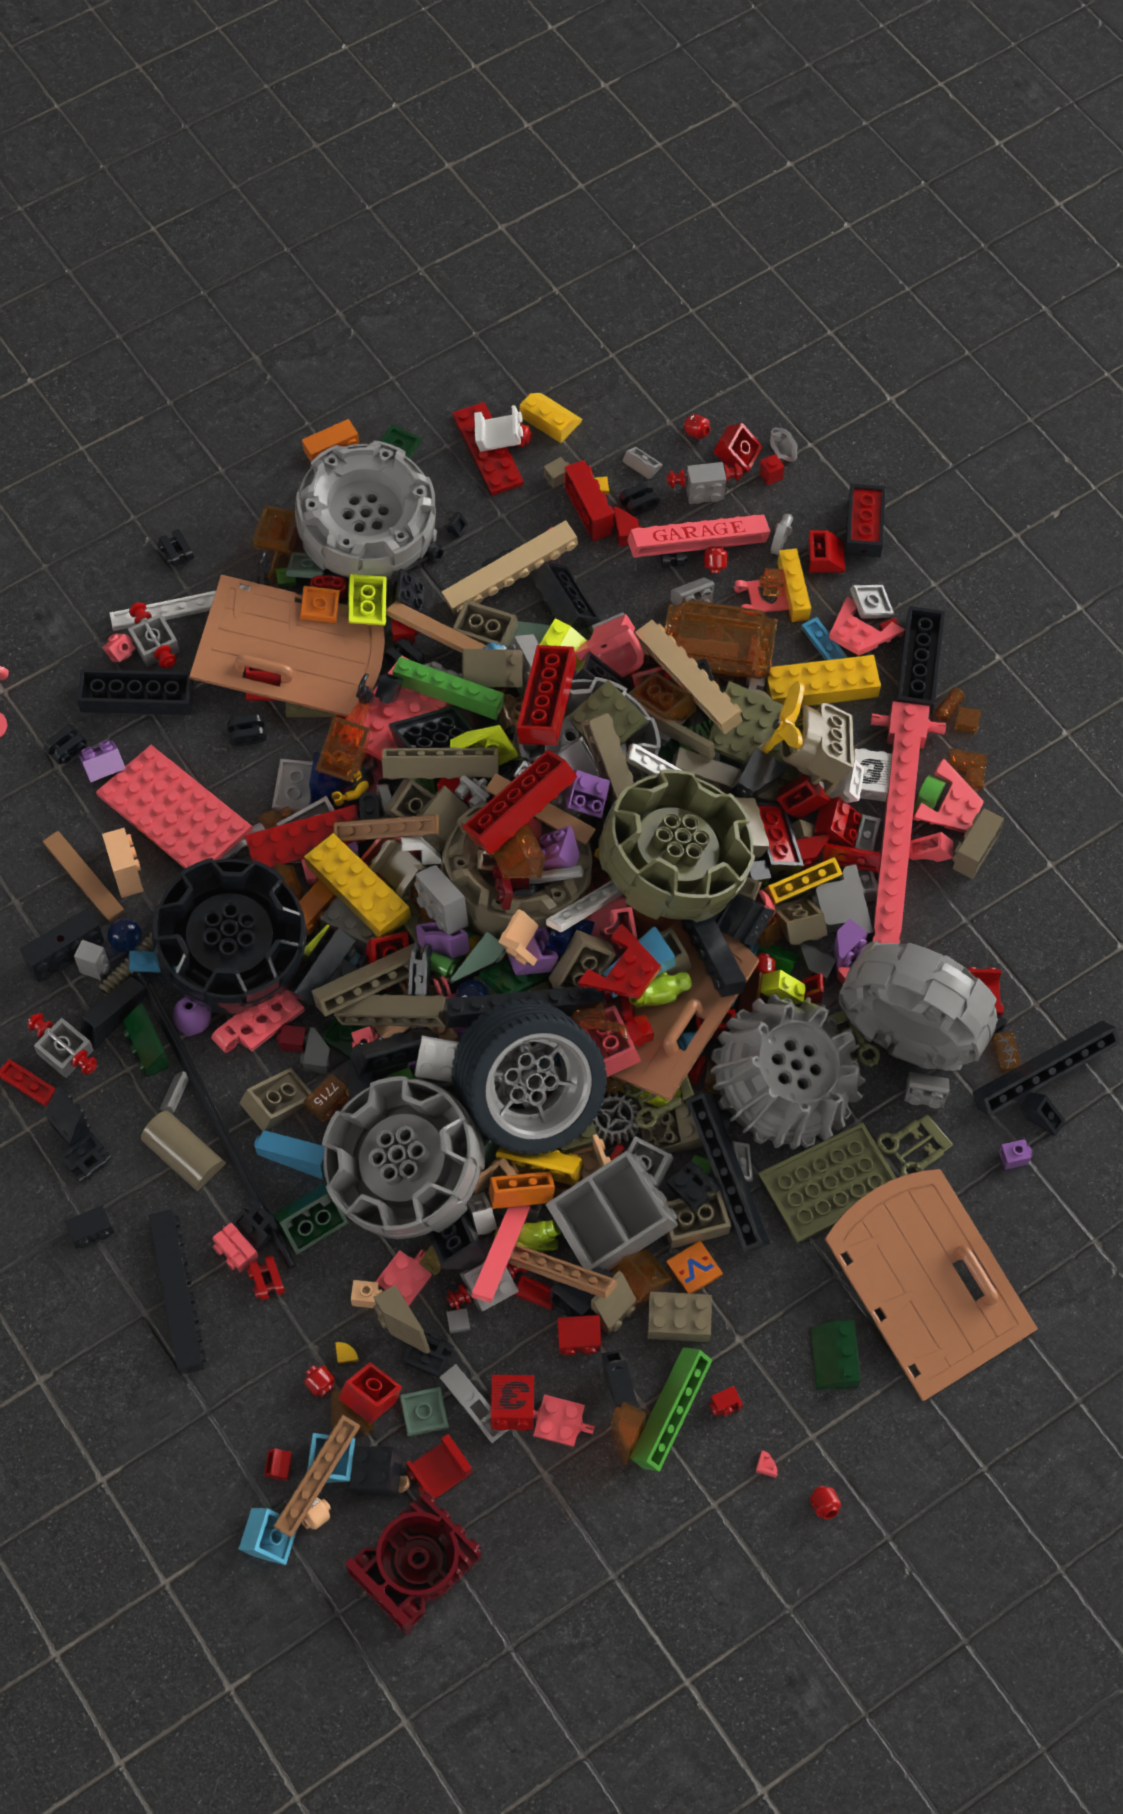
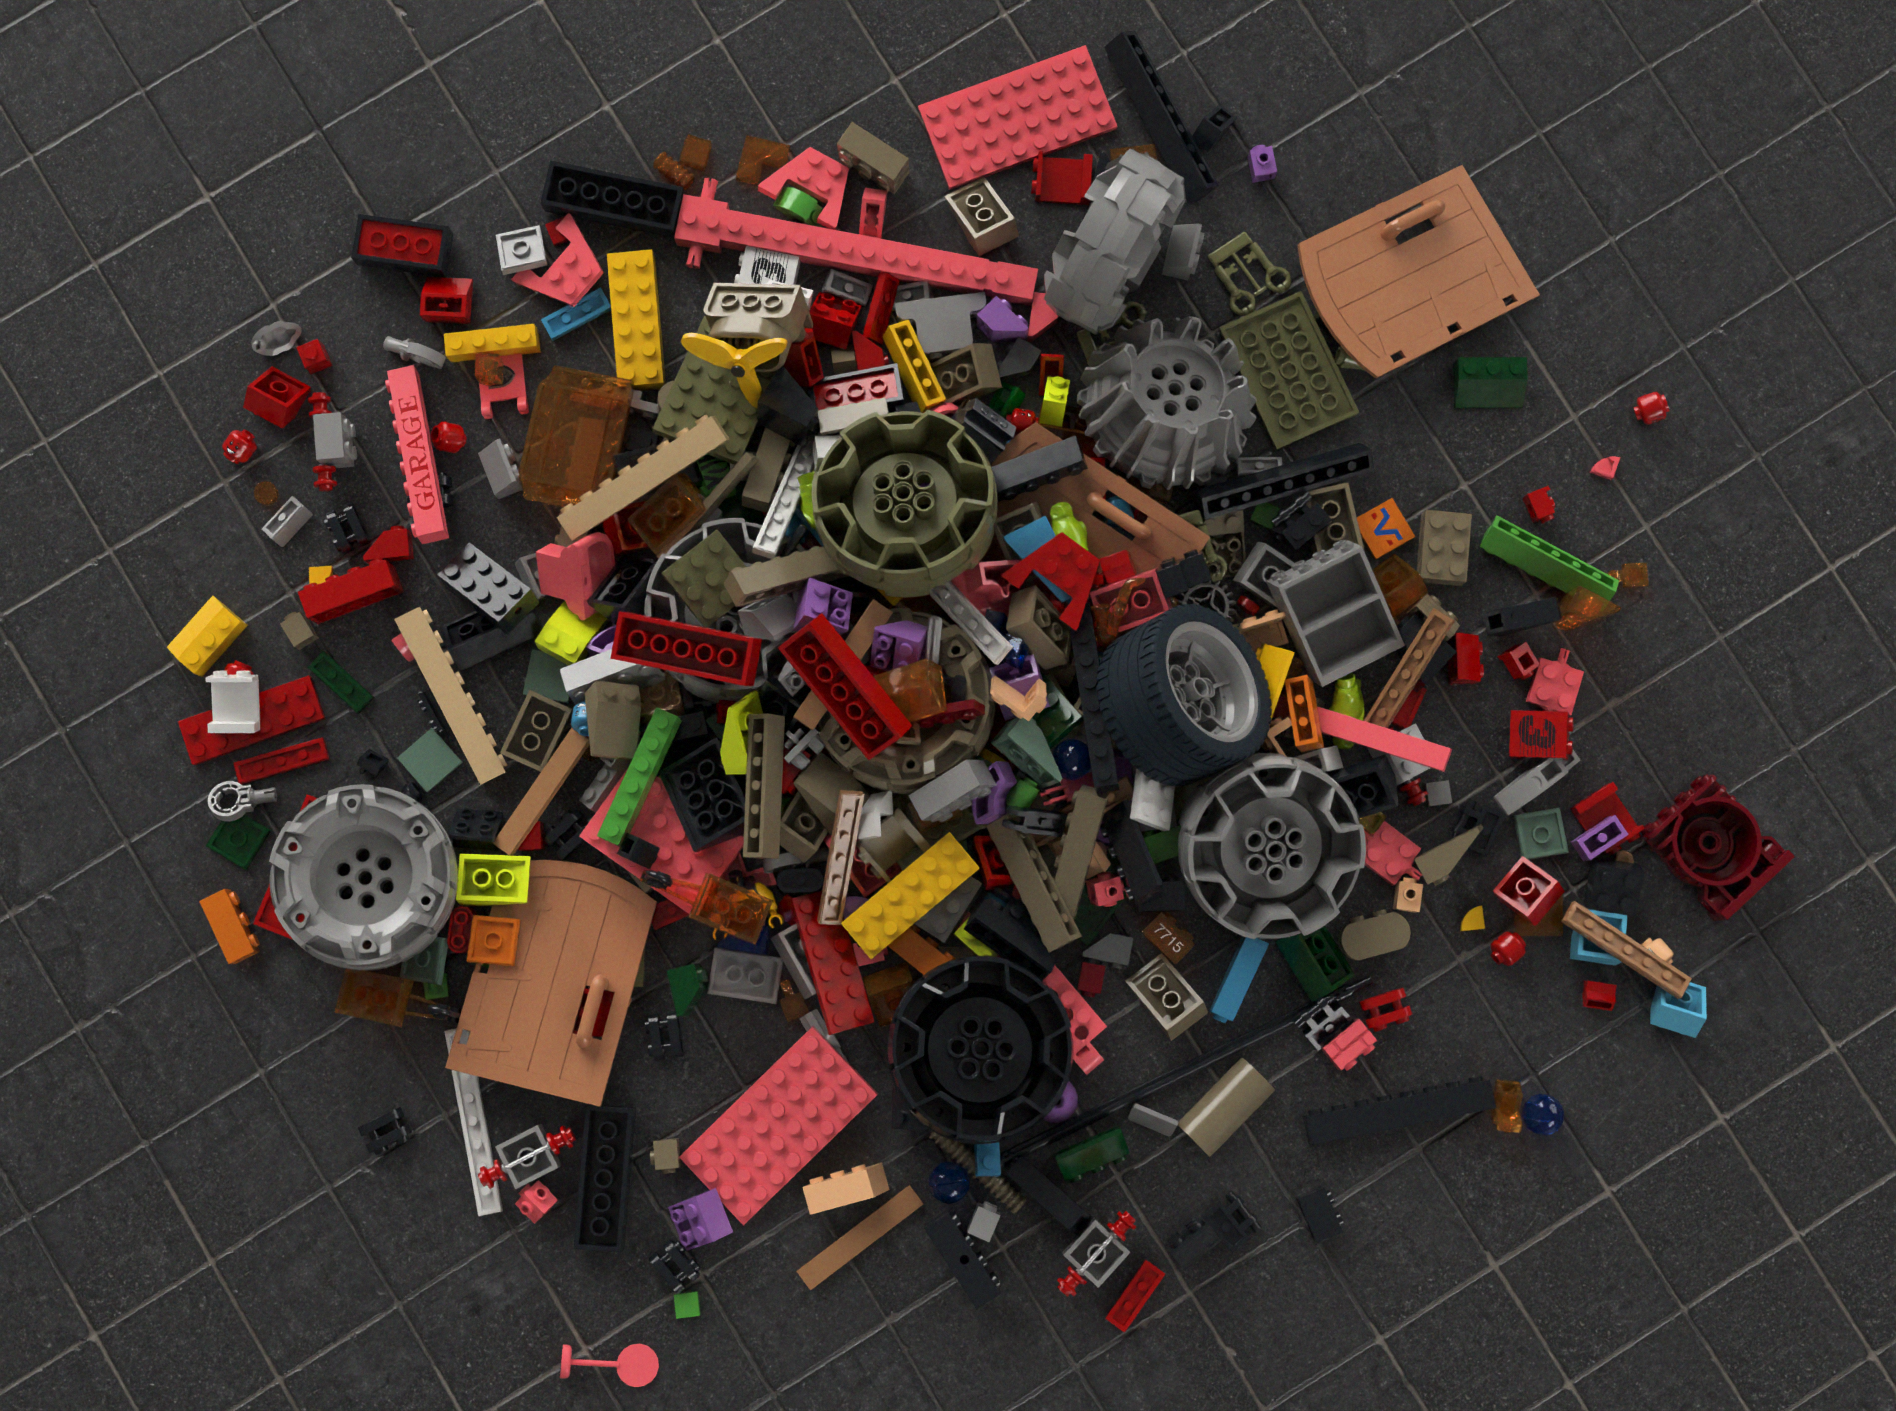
camera: 85 degrees left, 20 degrees up
(35, 757) = (687, 1304): none -> bright green tile
(152, 734) = (666, 1155): none -> dark tan brick
(170, 1411) = (1543, 1114): none -> clear blue piece
(179, 1382) = (1508, 1101): none -> clear orange brick
(281, 735) = (687, 986): none -> dark green slope
(330, 1266) = (1374, 935): none -> dark tan brick
(420, 1455) = (1599, 838): none -> medium lavender brick
(426, 446) = (245, 803): none -> light grey pin
(457, 469) = (281, 761): none -> red tile
(460, 562) = (430, 760): none -> sand green tile
(519, 503) = (340, 682): none -> dark green tile
(587, 1386) = (1519, 661): none -> red brick
(595, 586) = (488, 588): none -> brick
(634, 1074) = (1181, 574): none -> black brick
(663, 447) = (266, 493): none -> clear orange tile
(666, 1488) = (1632, 575): none -> clear orange plate
(940, 930) = (982, 216): none -> dark tan slope
(1033, 958) = (1017, 117): none -> coral plate

